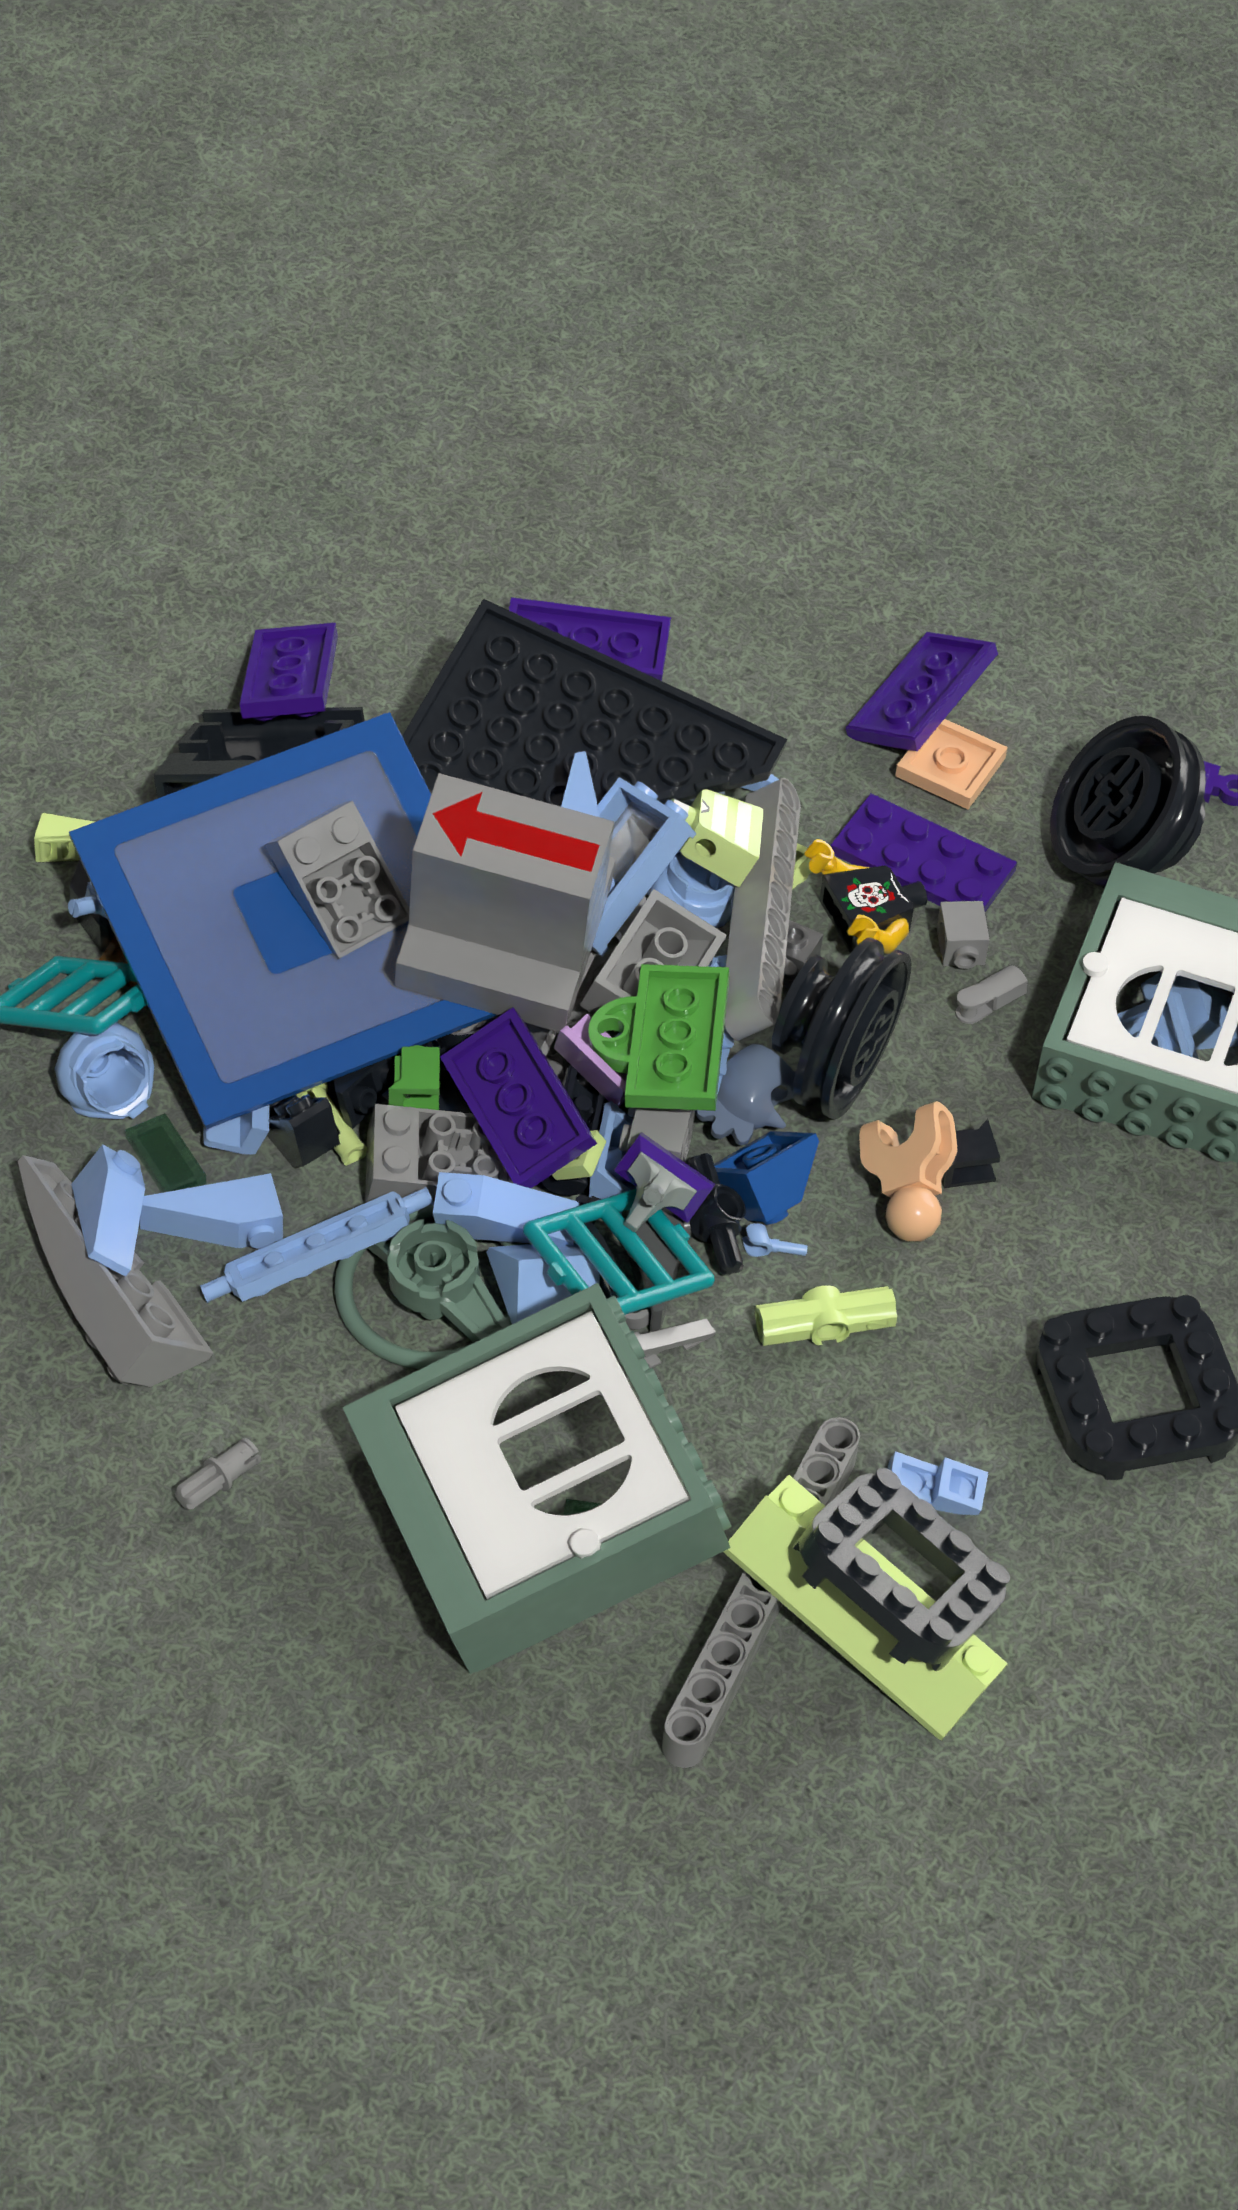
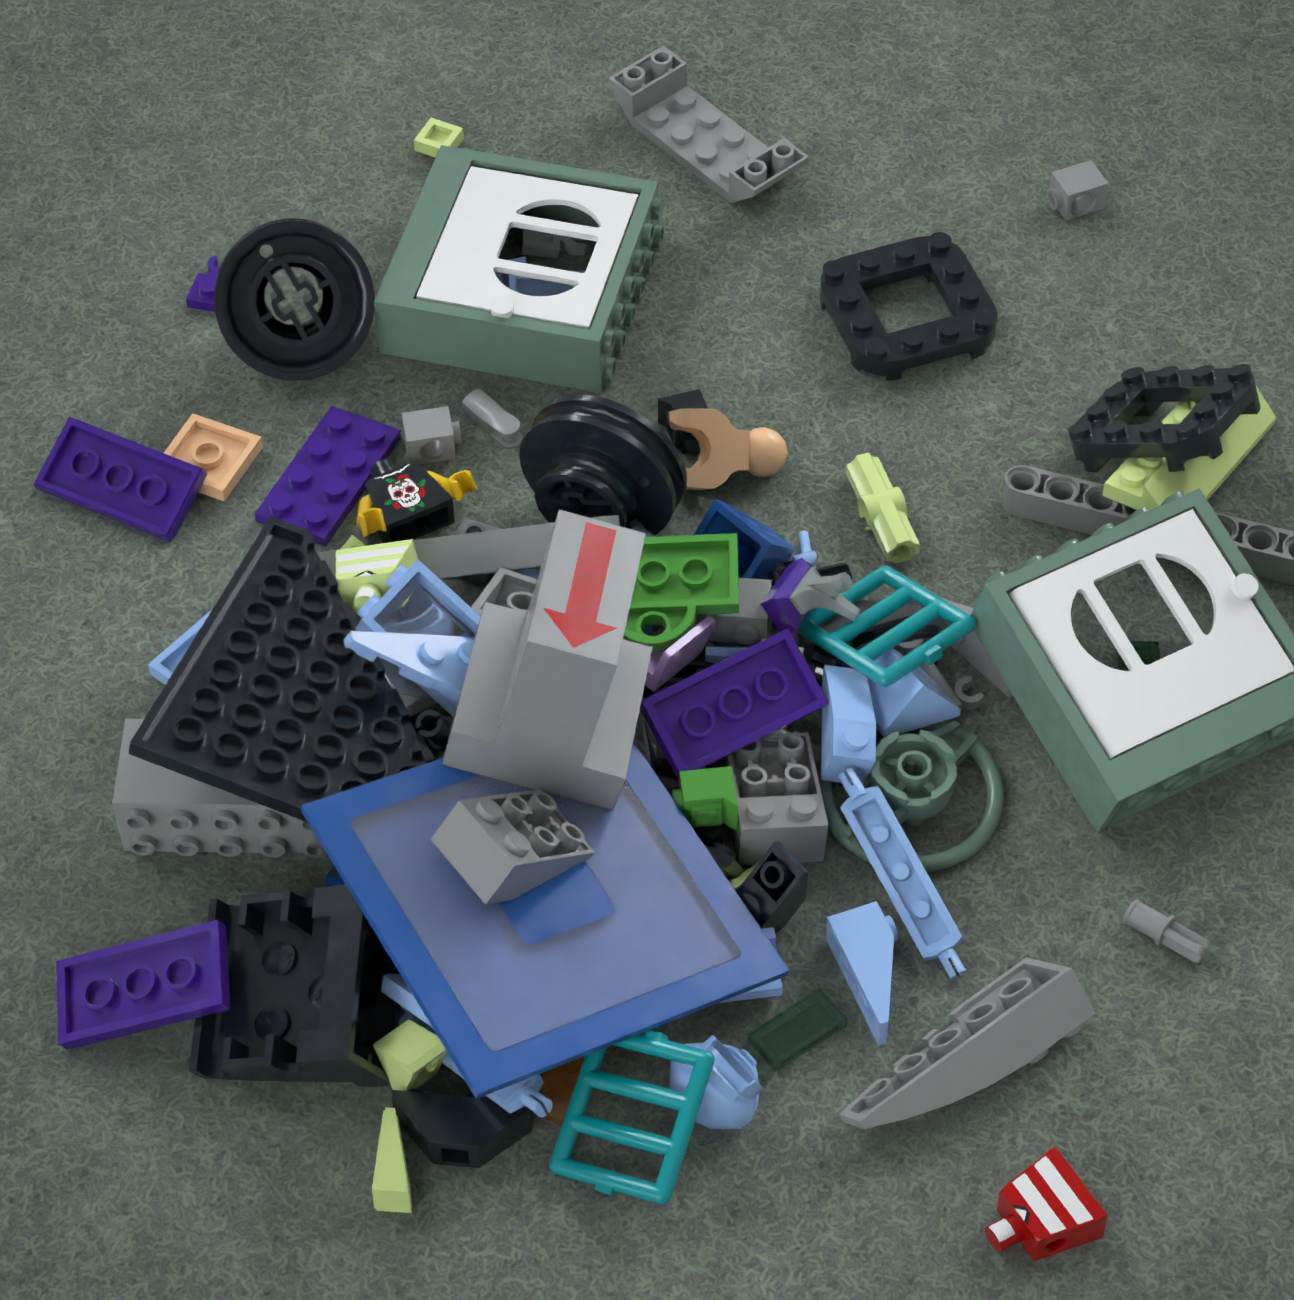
camera: 90 degrees left, 0 degrees up
(110, 1206) = (898, 1042): light blue slope -> none
(624, 636) = (61, 751): dark purple plate -> none
(947, 1487) = (1035, 433): light blue slope -> none

